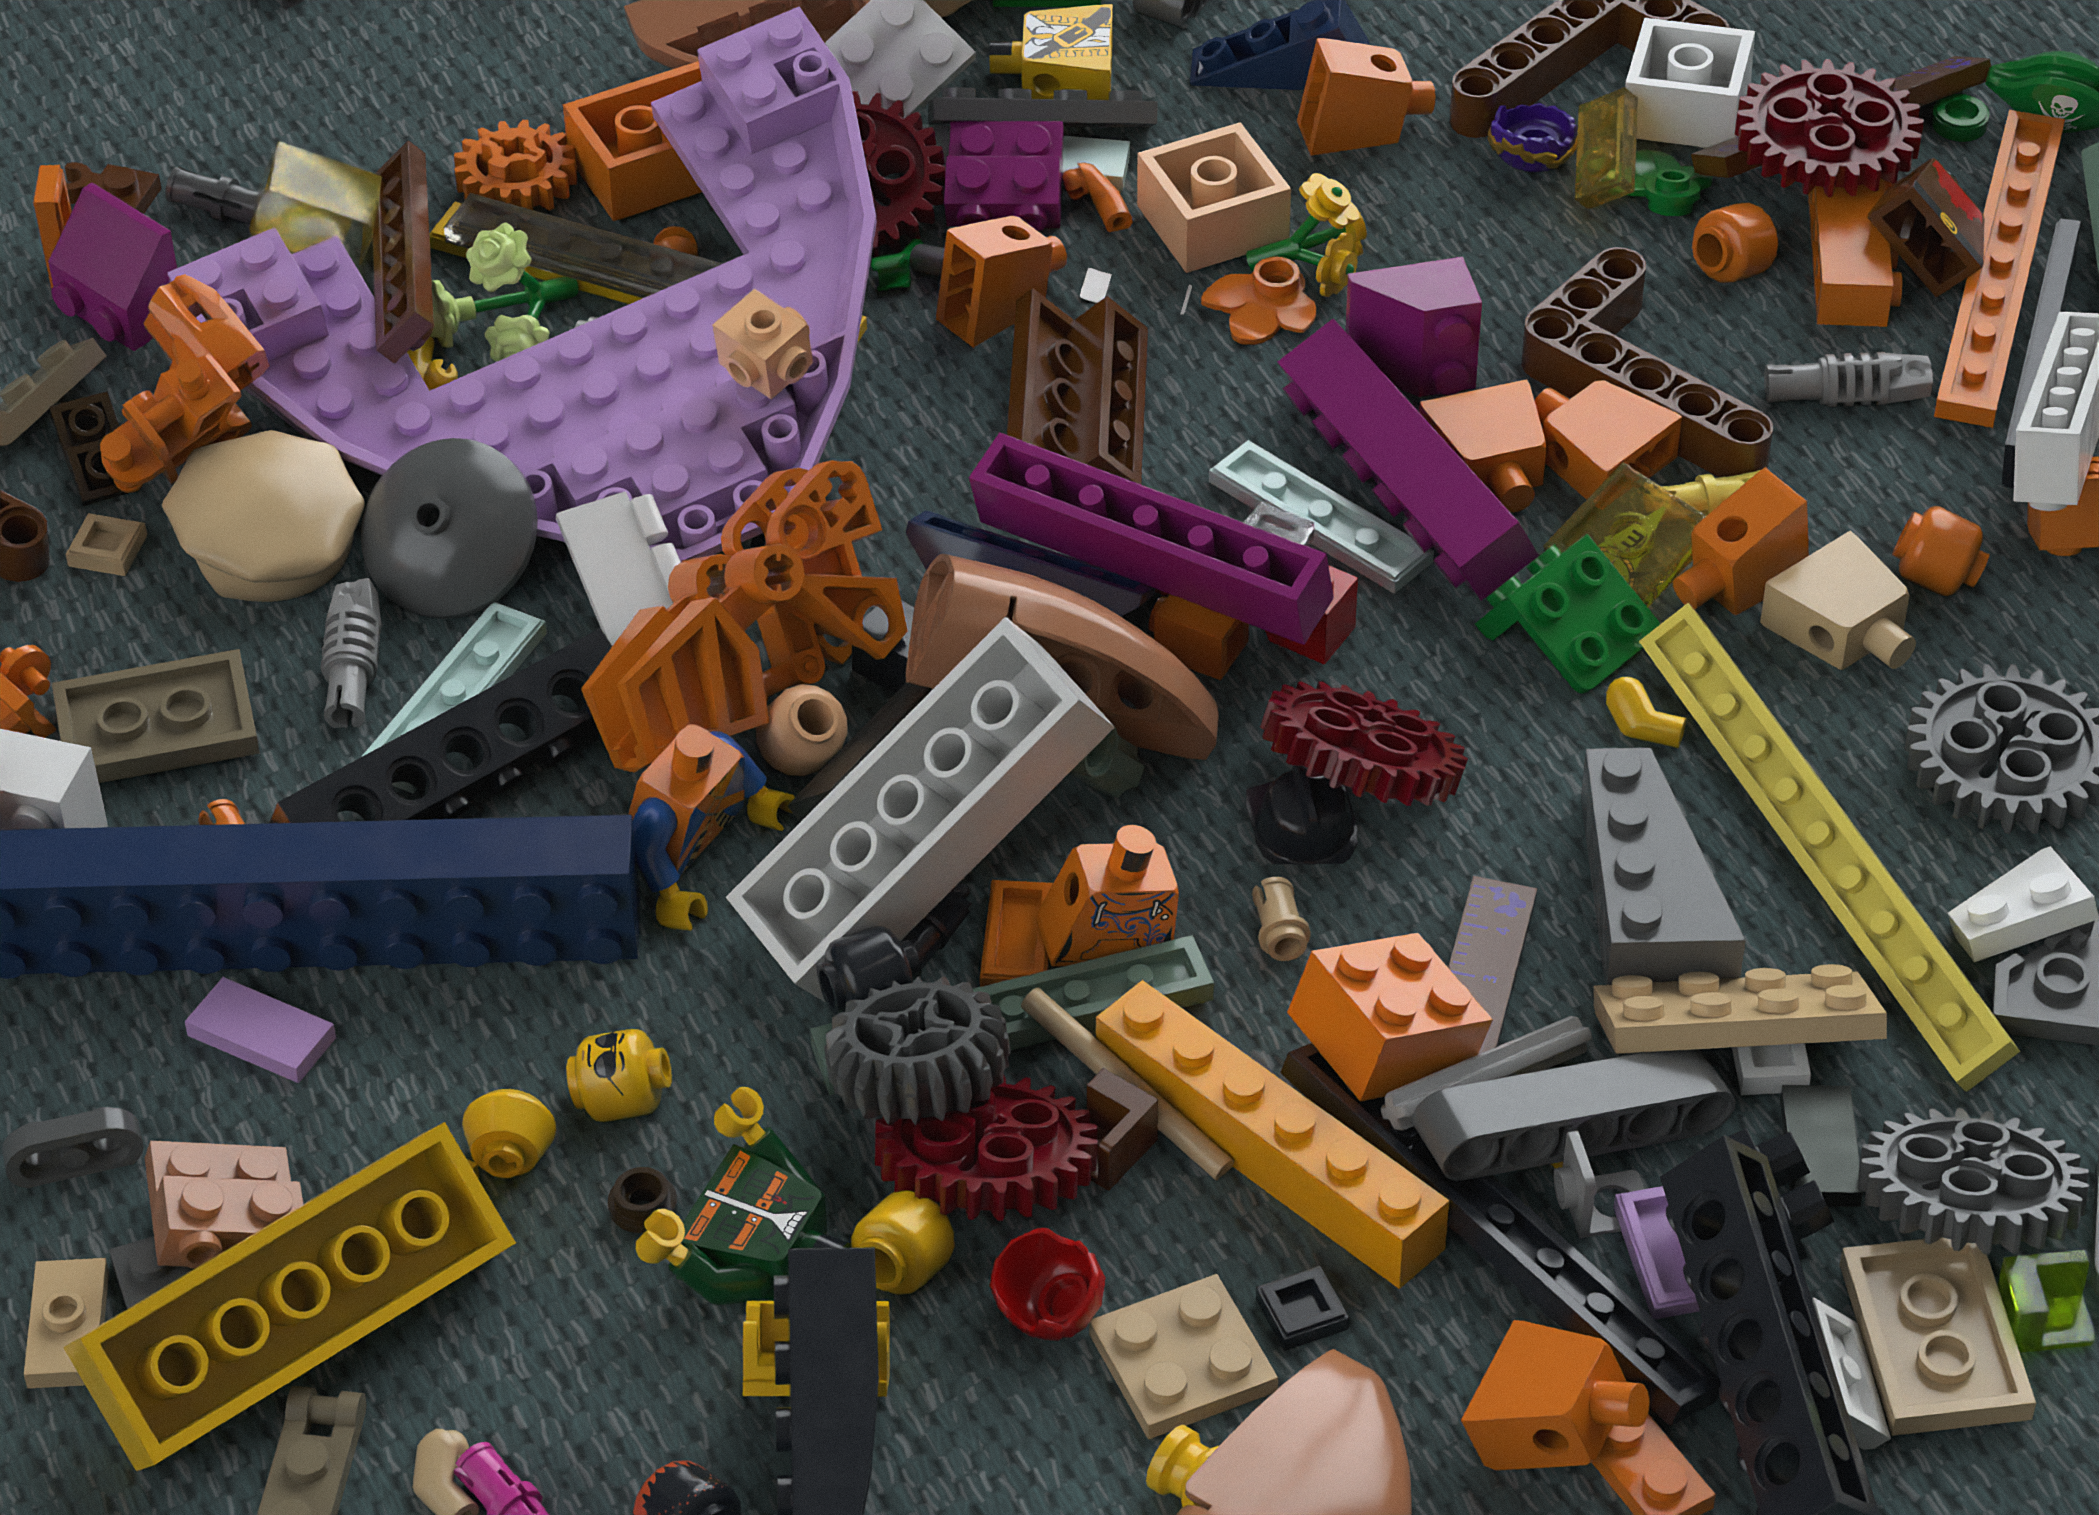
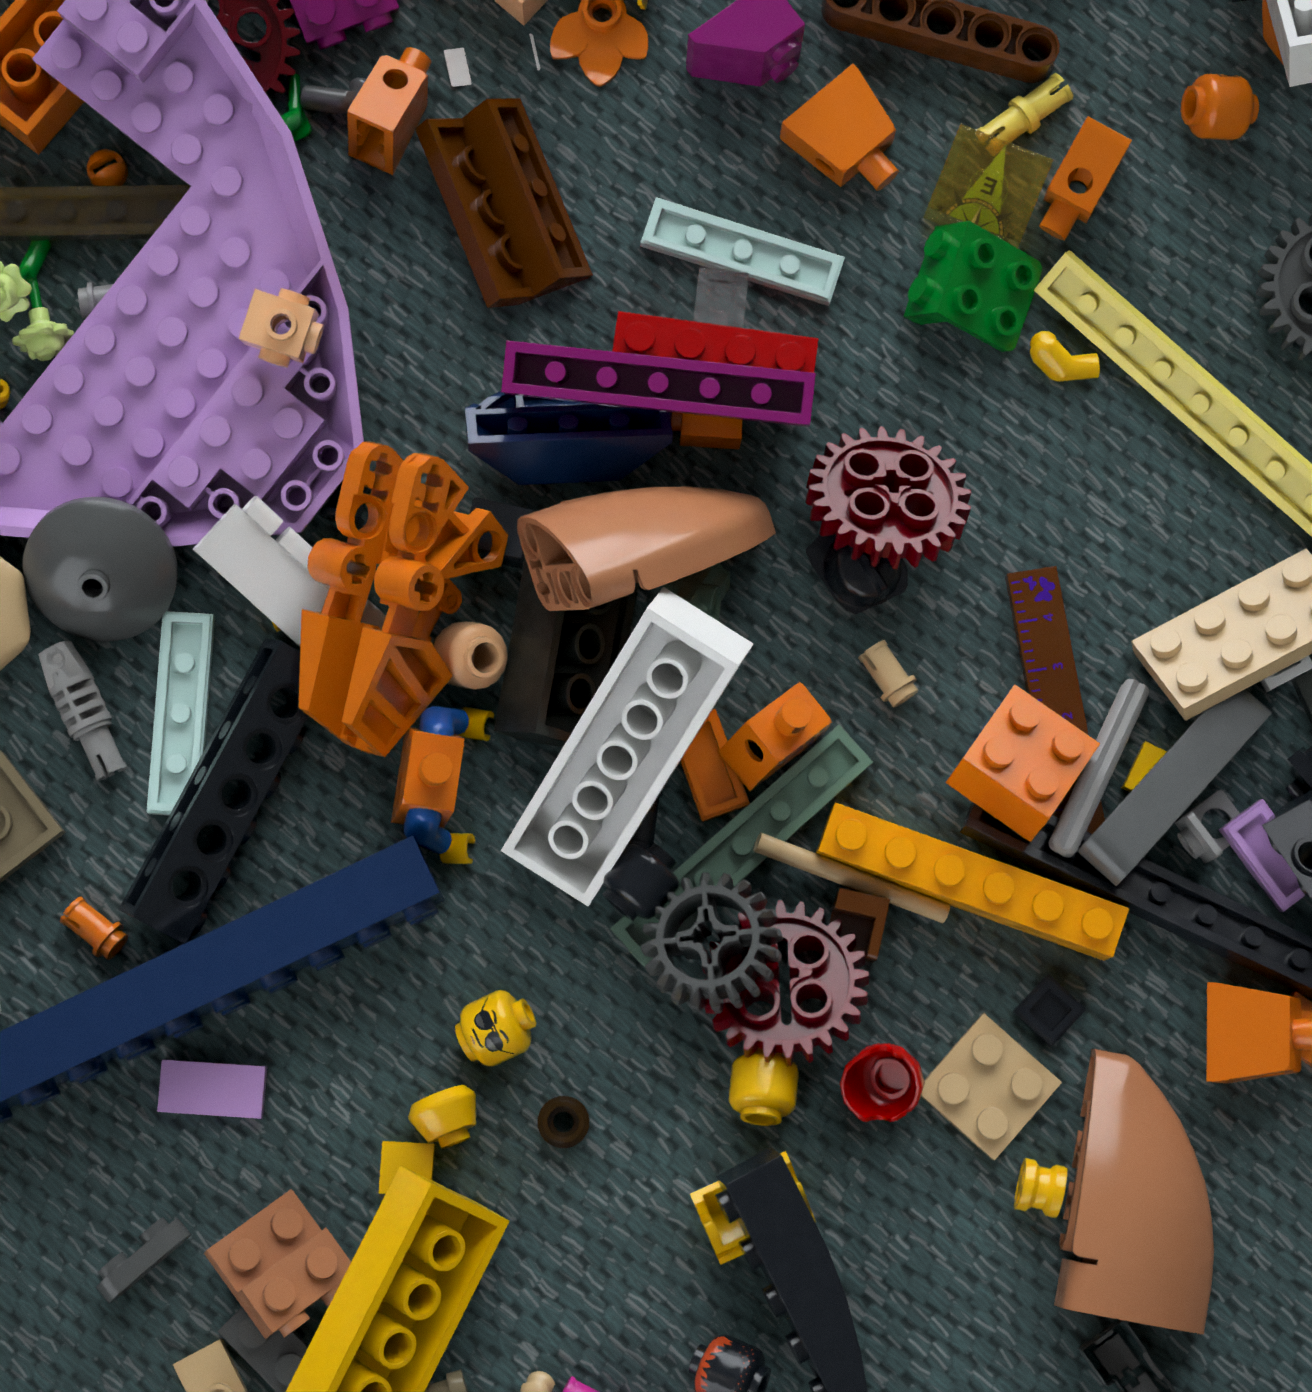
camera: 30 degrees left, 35 degrees up
(744, 1217) = (656, 1119): torso -> none
(1407, 460) = (793, 184): magenta brick -> none
(1601, 430) = (926, 89): orange torso -> none
(1649, 877) = (1136, 533): wedge -> none
(1841, 605) = (1171, 195): tan torso -> none

